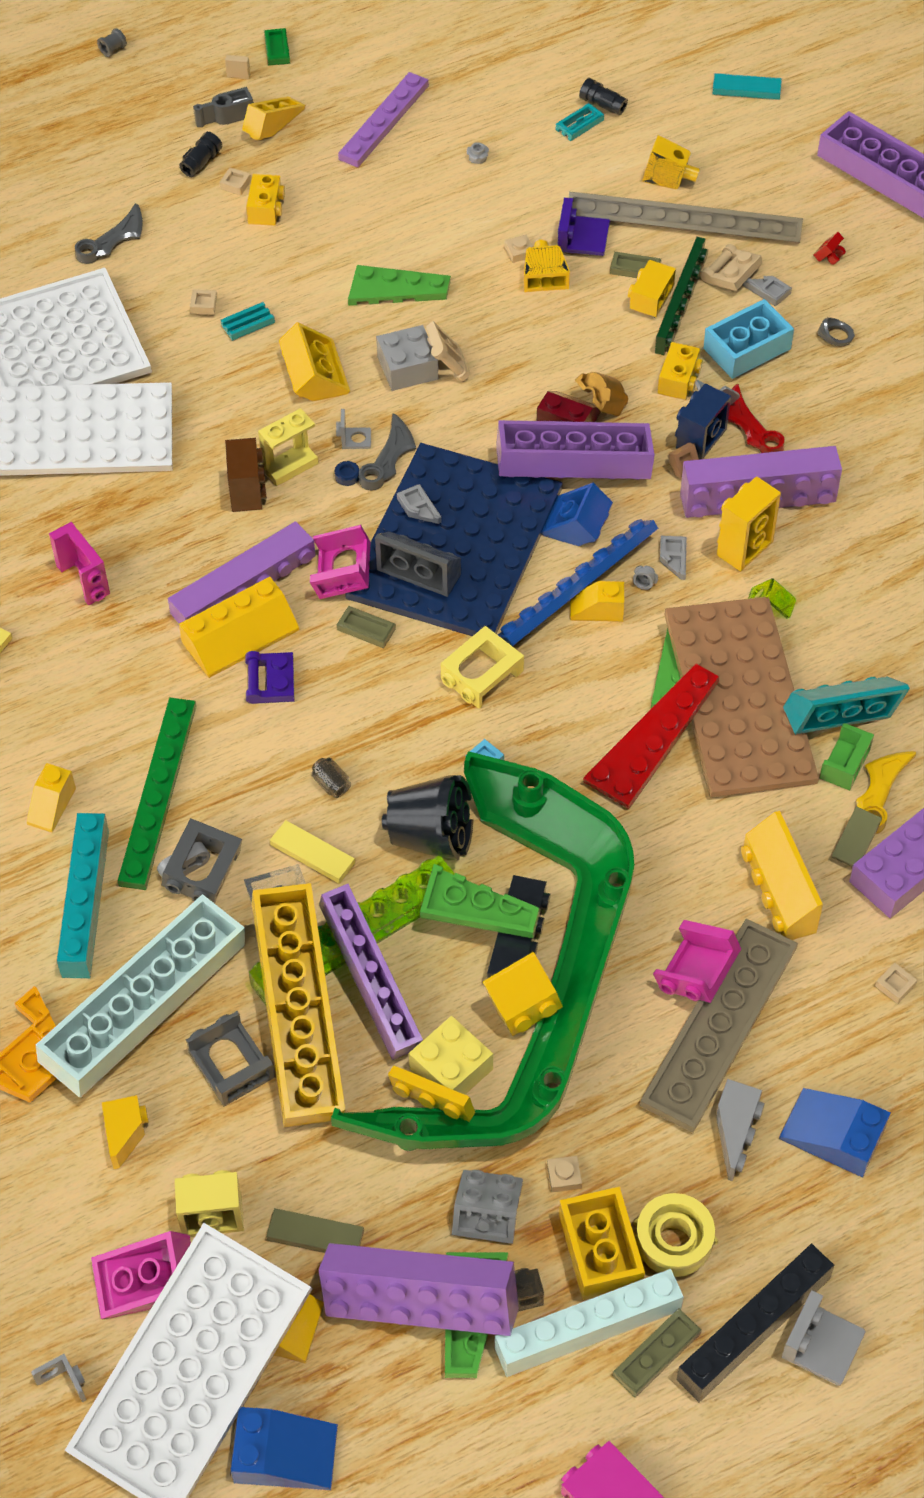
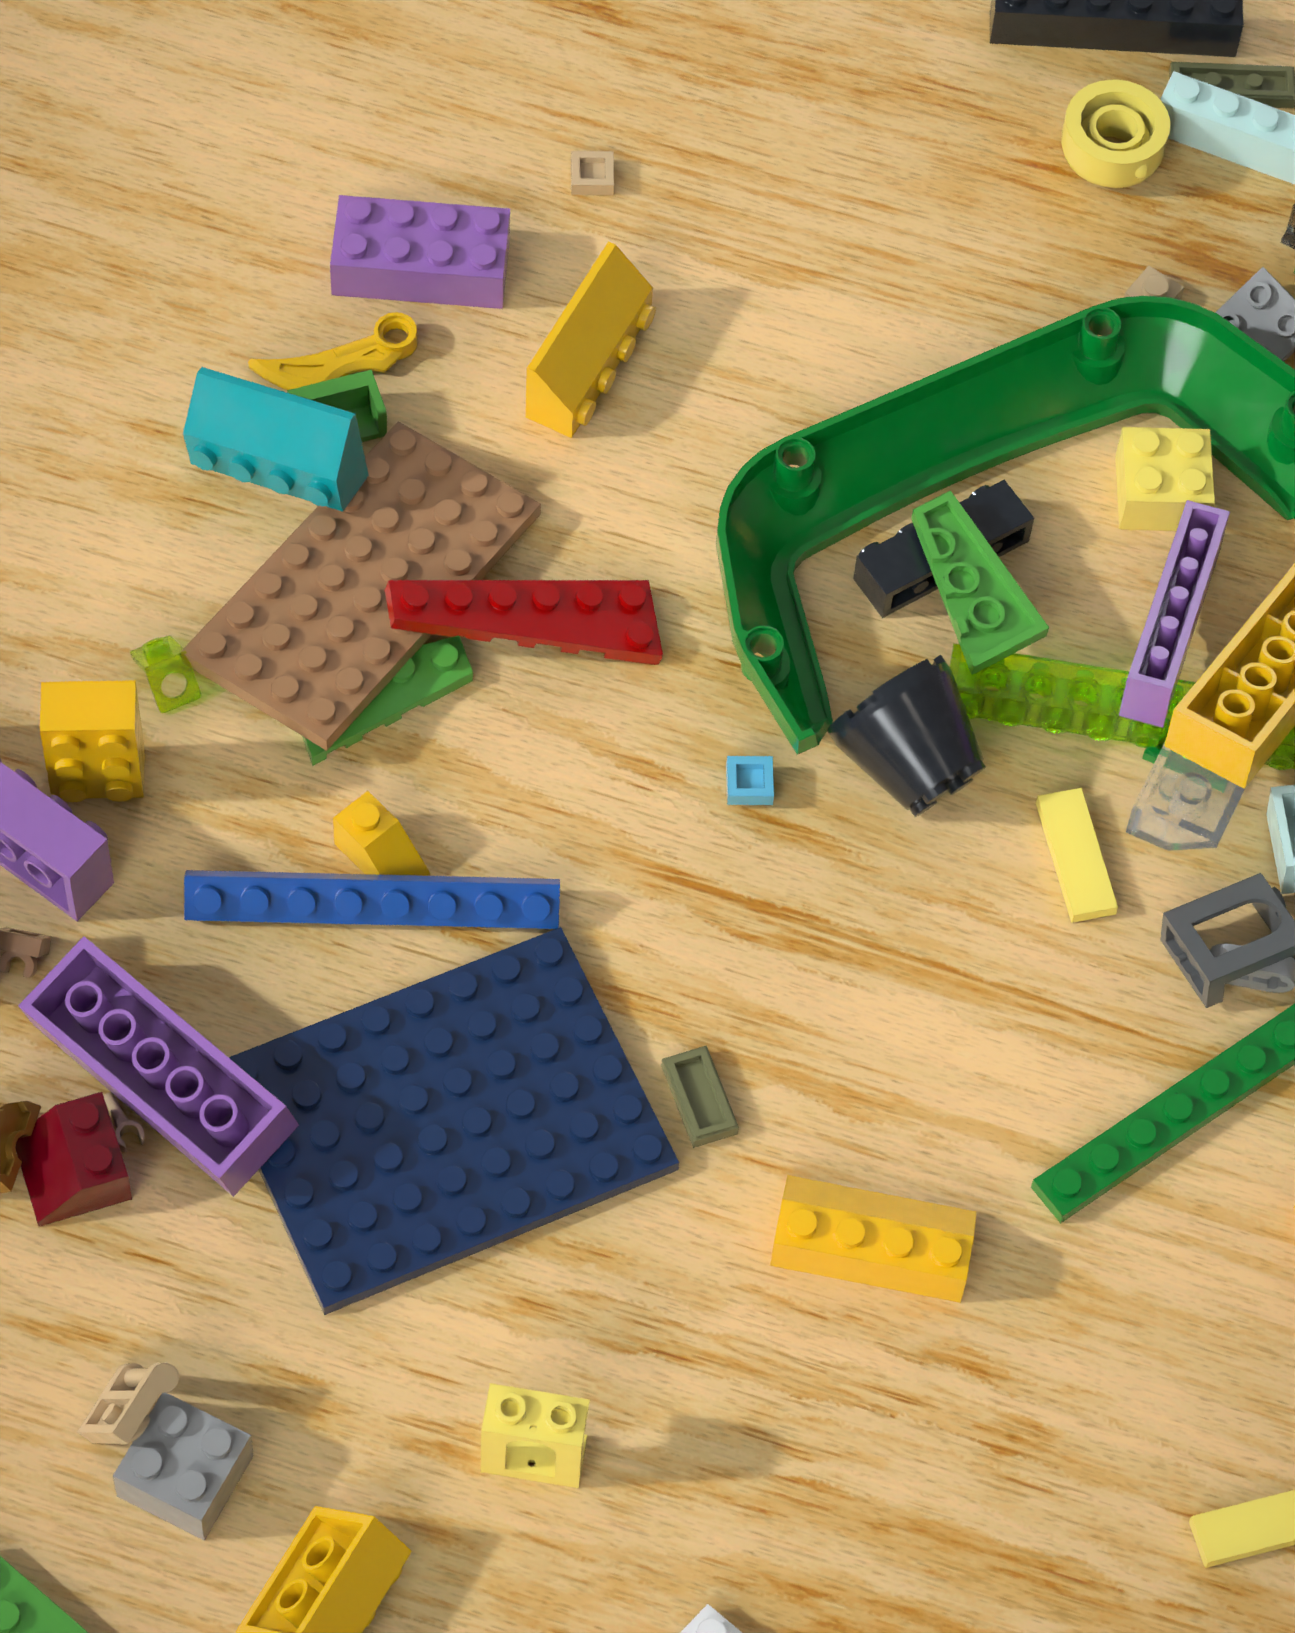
camera: 140 degrees left, 5 degrees up
(73, 550) = (1003, 1562): dark pink panel -> none
(245, 474) = (637, 1455): reddish brown brick -> none
(270, 558) = (794, 1308): medium lavender brick -> none
(279, 677) = (888, 1123): dark purple plate -> none
(330, 777) = (964, 919): clear smoke brick -> none
(331, 581) = (685, 1163): dark pink panel -> none
(347, 433) = (407, 1425): light grey bracket -> none
(347, 473) = (472, 1362): dark blue tile -> none
(398, 443) = (349, 1344): dark grey piece -> none
(417, 562) = (557, 1078): dark grey slope -> none
(418, 504) = (448, 1191): light grey tile -> none
(431, 1094) = (1227, 459): yellow plate -> none
(472, 690) = (663, 916): light yellow panel -> none
(522, 994) = (1029, 461): yellow slope -> none
(578, 515) = (258, 990): blue slope -> none
(600, 1242) = (1195, 188): yellow brick -> none
(645, 577) = (277, 834): light grey plate -> none
(674, 554) = (197, 839): light grey tile -> none
(699, 962) = (788, 344): dark pink panel -> none
(718, 1029) = (826, 284): dark tan plate -> none
(734, 1118) = (924, 186): light grey slope -> none
(836, 1129) = (832, 98): blue slope -> none
(856, 837) = (446, 323): olive tile -> none

